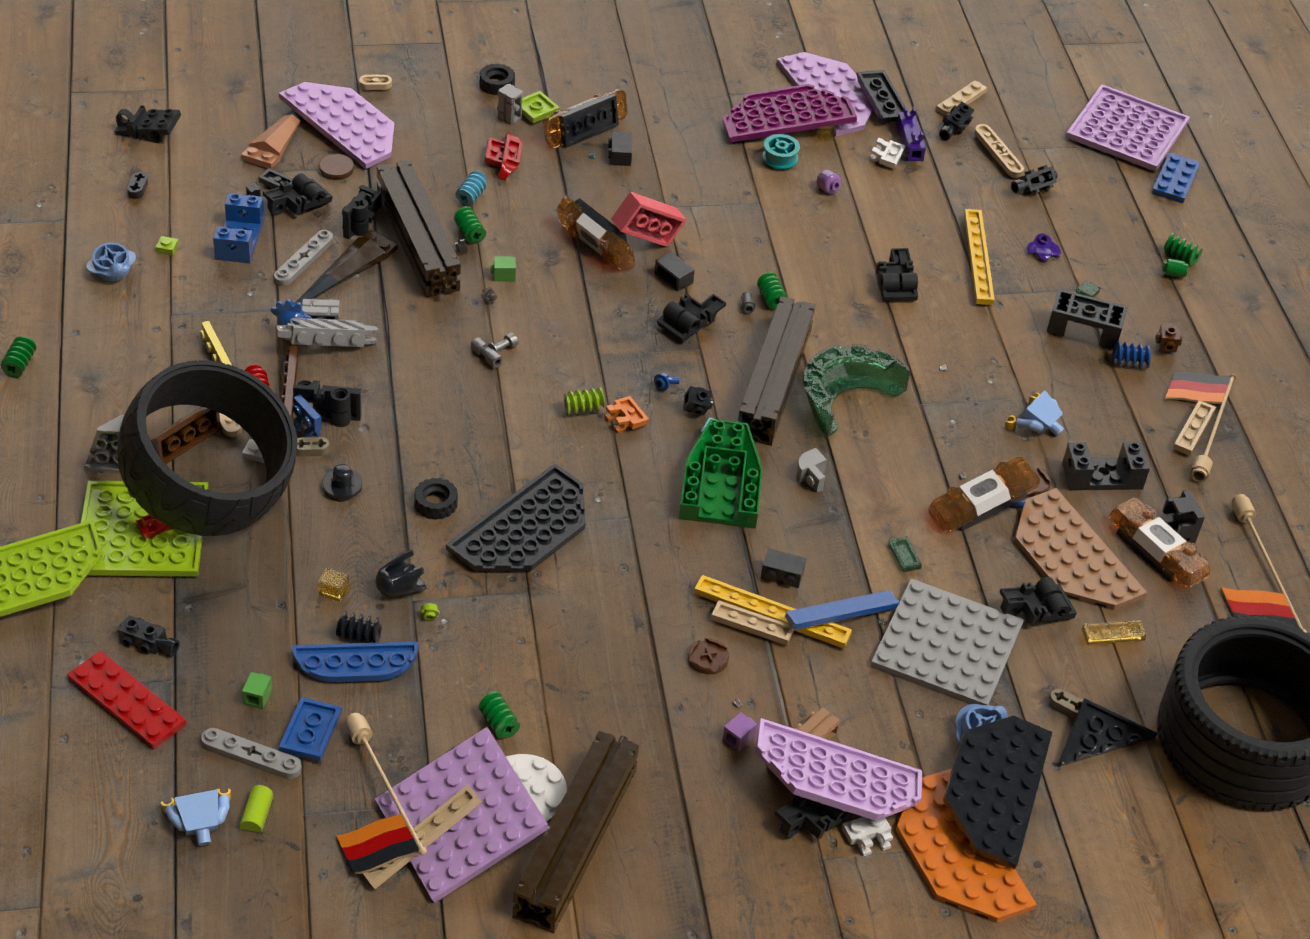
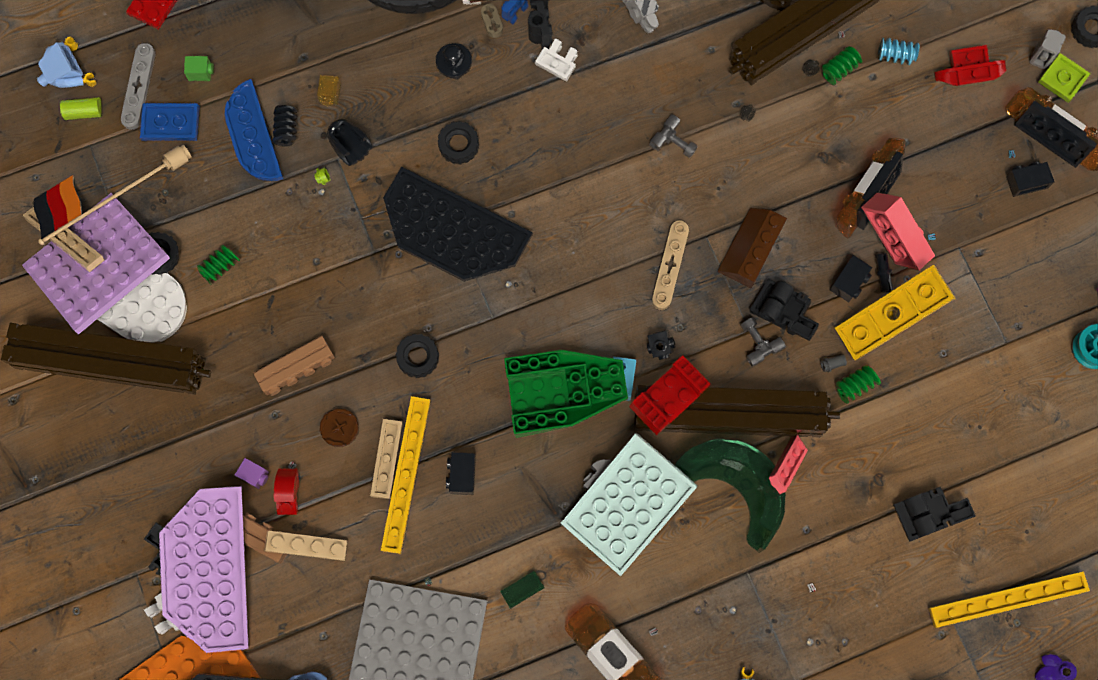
camera: 80 degrees right, 30 degrees up
(381, 409) = (556, 64): none -> white plate
(504, 268) = (790, 115): bright green brick -> none
(583, 400) = (623, 237): lime piece -> none
(622, 322) = (752, 245): none -> reddish brown slope
(627, 385) = (666, 282): none -> tan piece
(630, 413) = (627, 285): orange plate -> none
(633, 674) = (294, 365): none -> medium nougat brick
(649, 589) = (417, 341): none -> black tyre
(663, 380) = (681, 304): blue plate -> none
(679, 252) = (884, 272): none -> black pin
(720, 341) = (763, 348): none -> flat silver bar
(721, 242) = (879, 321): none -> yellow plate
(756, 386) = (670, 395): none -> red plate
(766, 700) = (285, 491): none -> red brick
(828, 181) = (1067, 409): medium lavender head -> none
(828, 696) = (305, 545): none -> tan plate
(837, 339) = (788, 464): none -> coral plate
(841, 609) = (422, 540): tile -> none
(847, 449) = (629, 504): none -> light aqua plate

